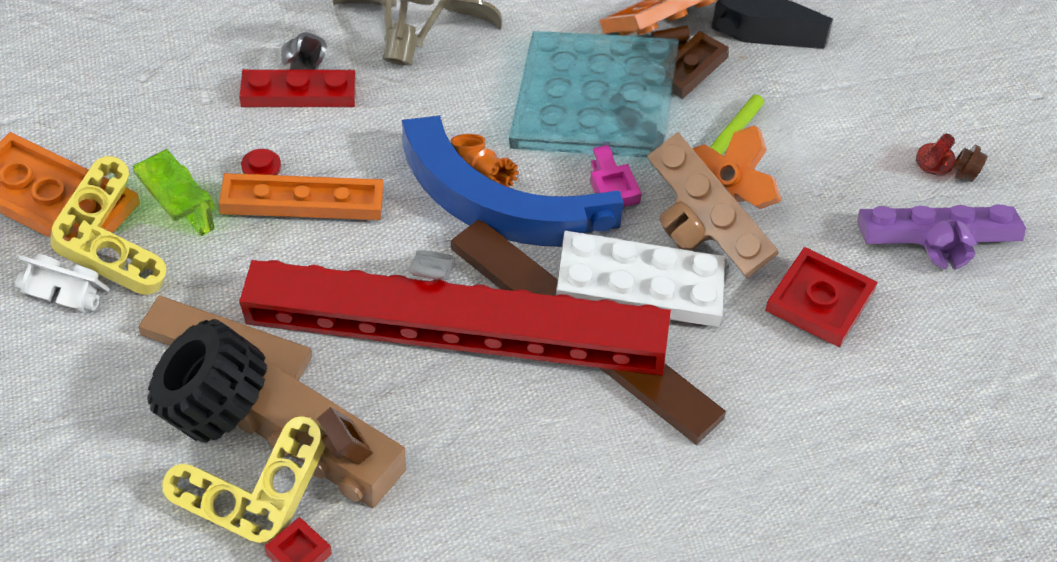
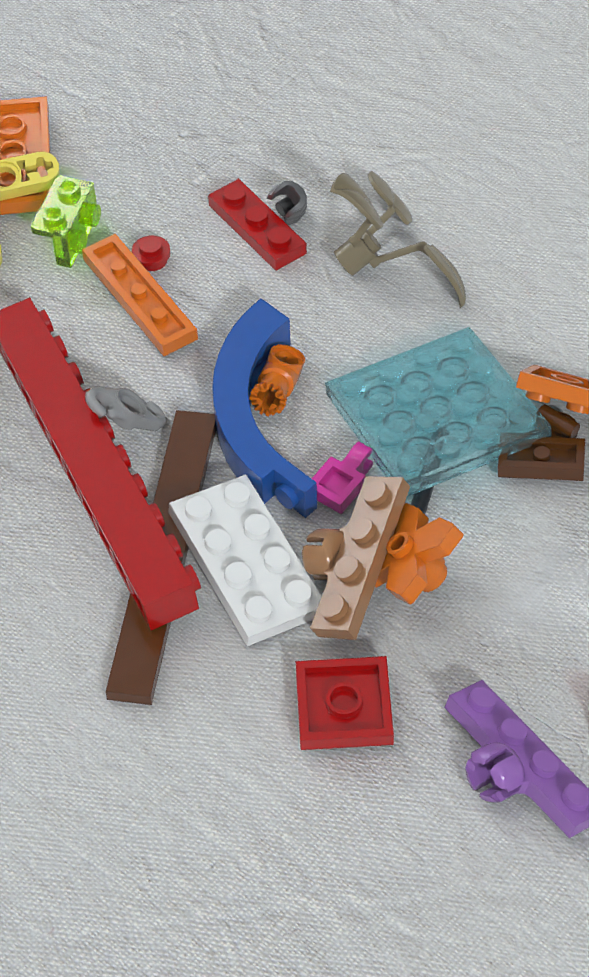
camera: 60 degrees right, 0 degrees up
(738, 123) = (507, 534): lime bar -> none

